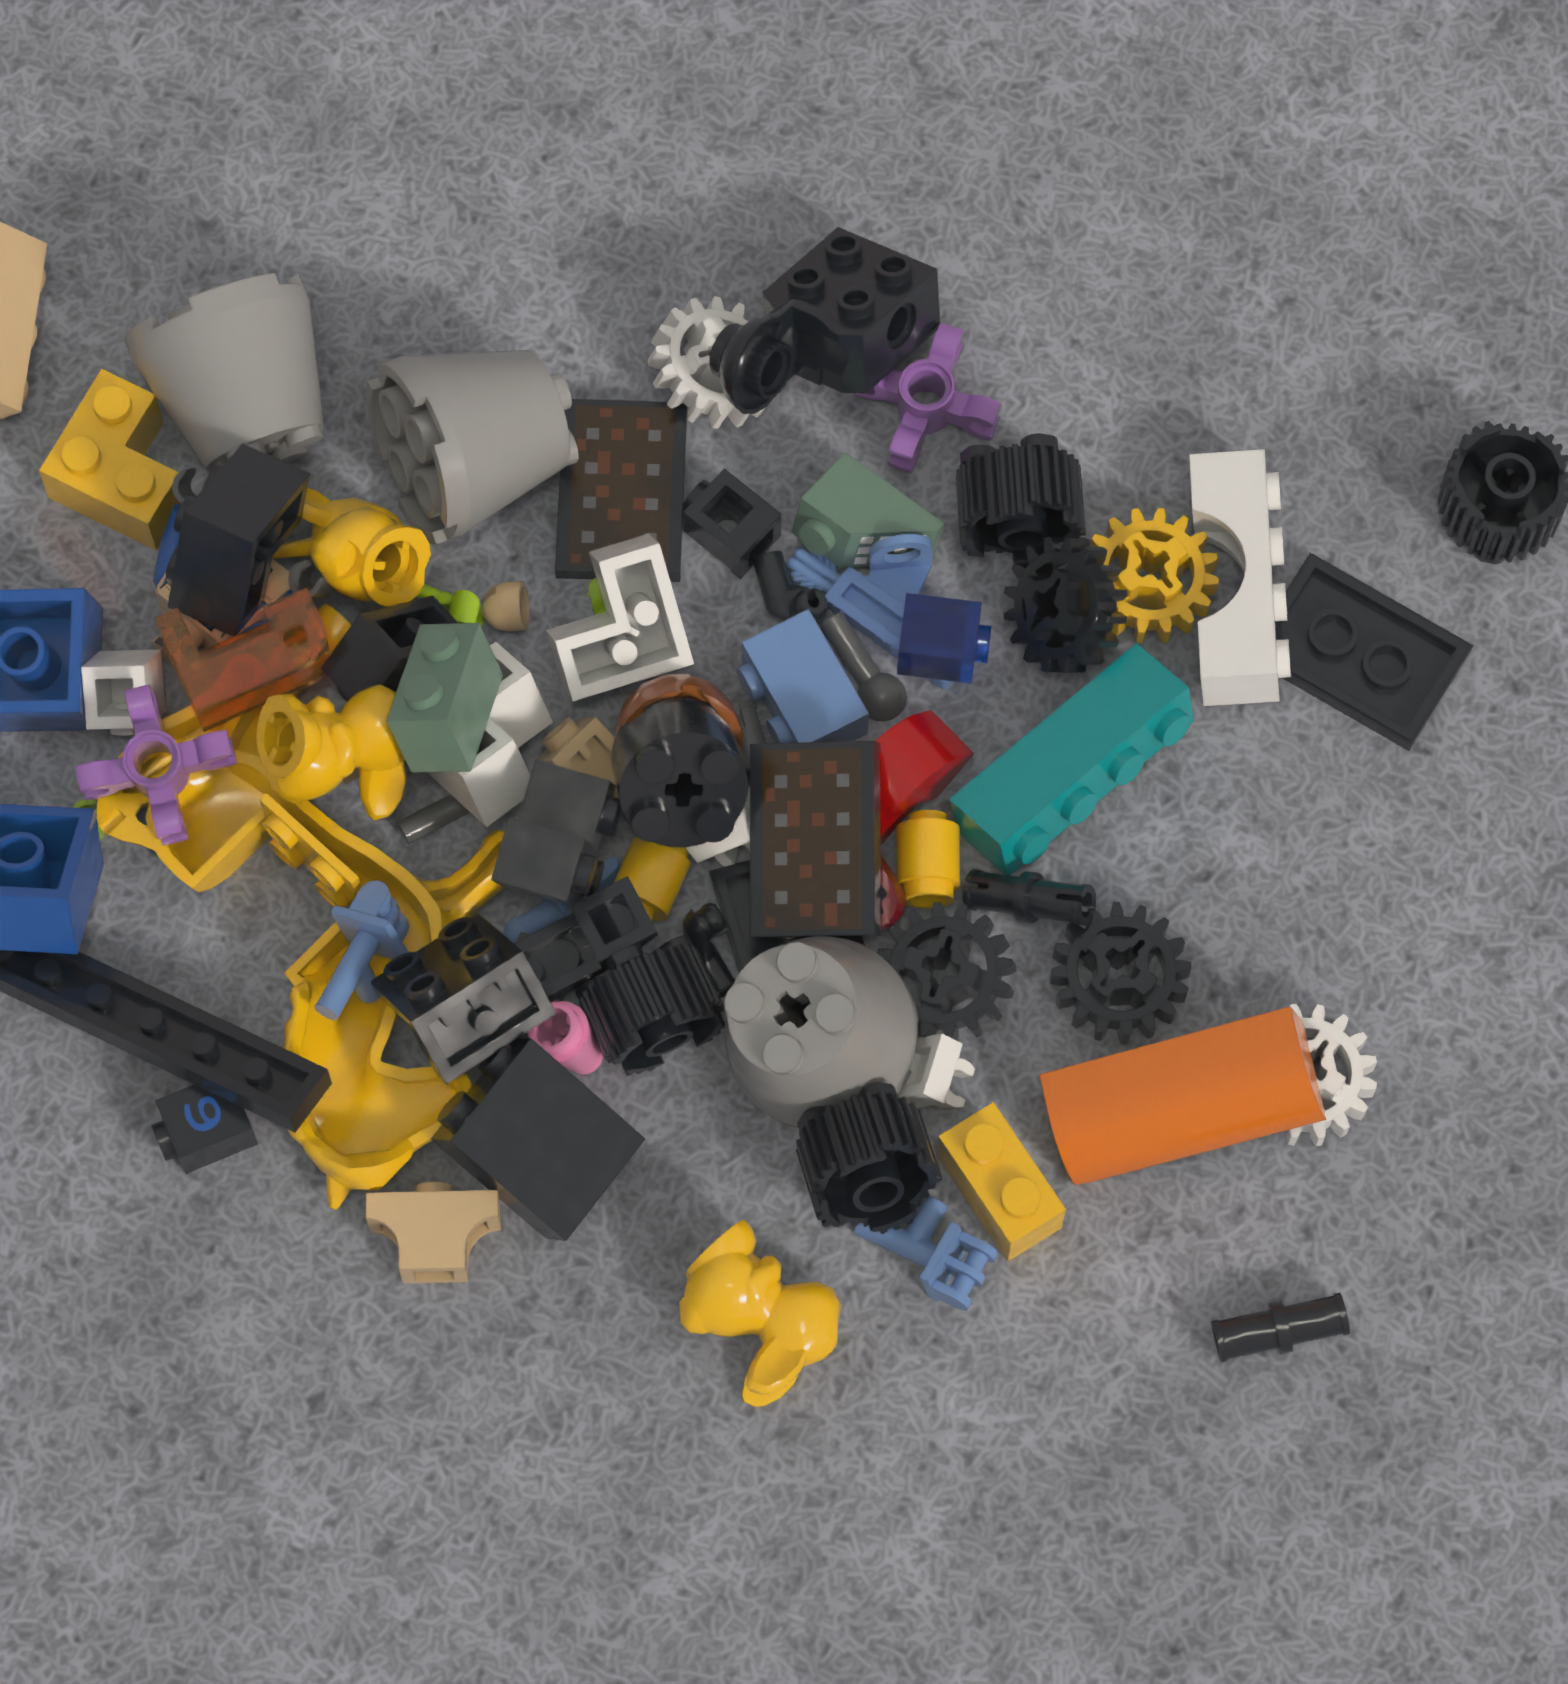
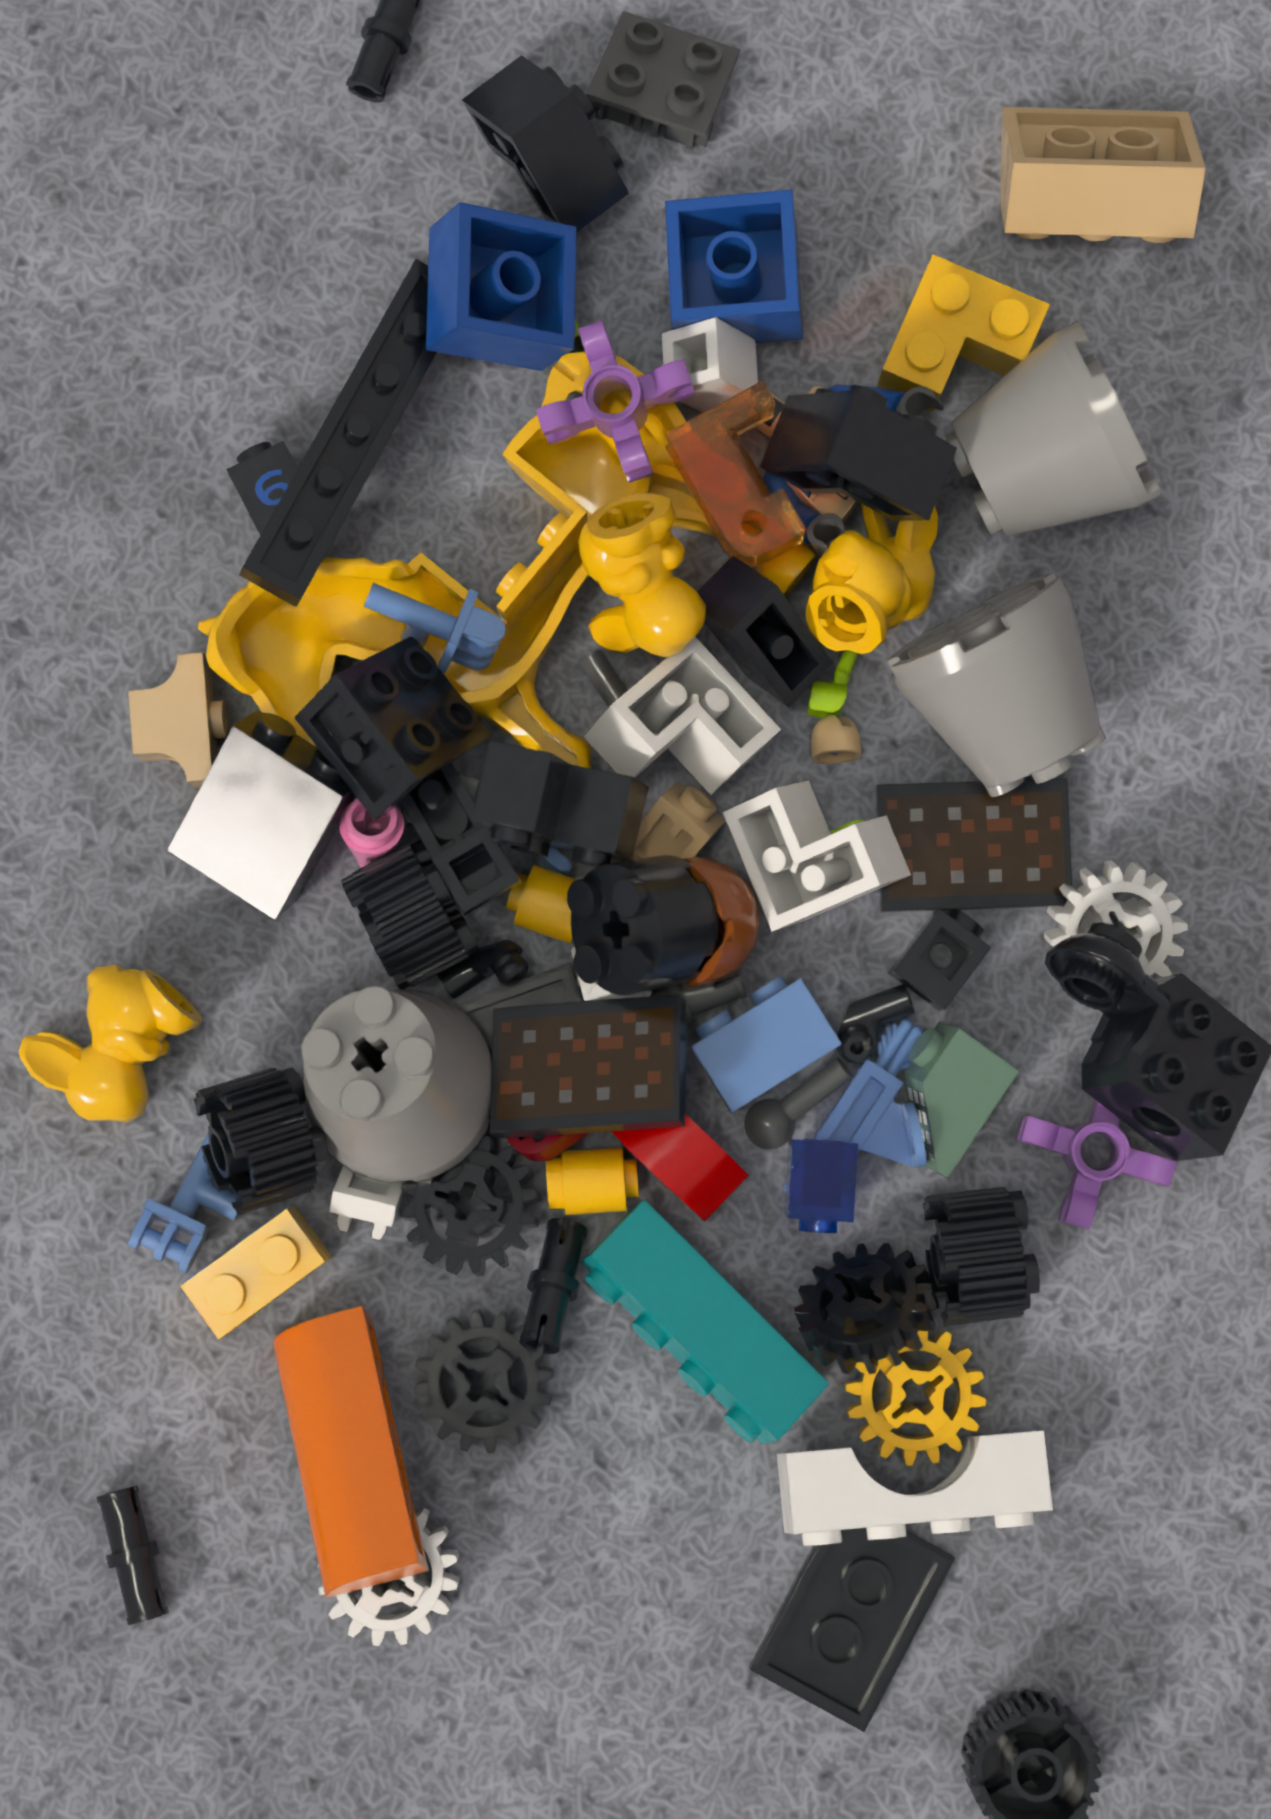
camera: 85 degrees right, 15 degrees up
(445, 697) = (694, 679): sand green brick -> none

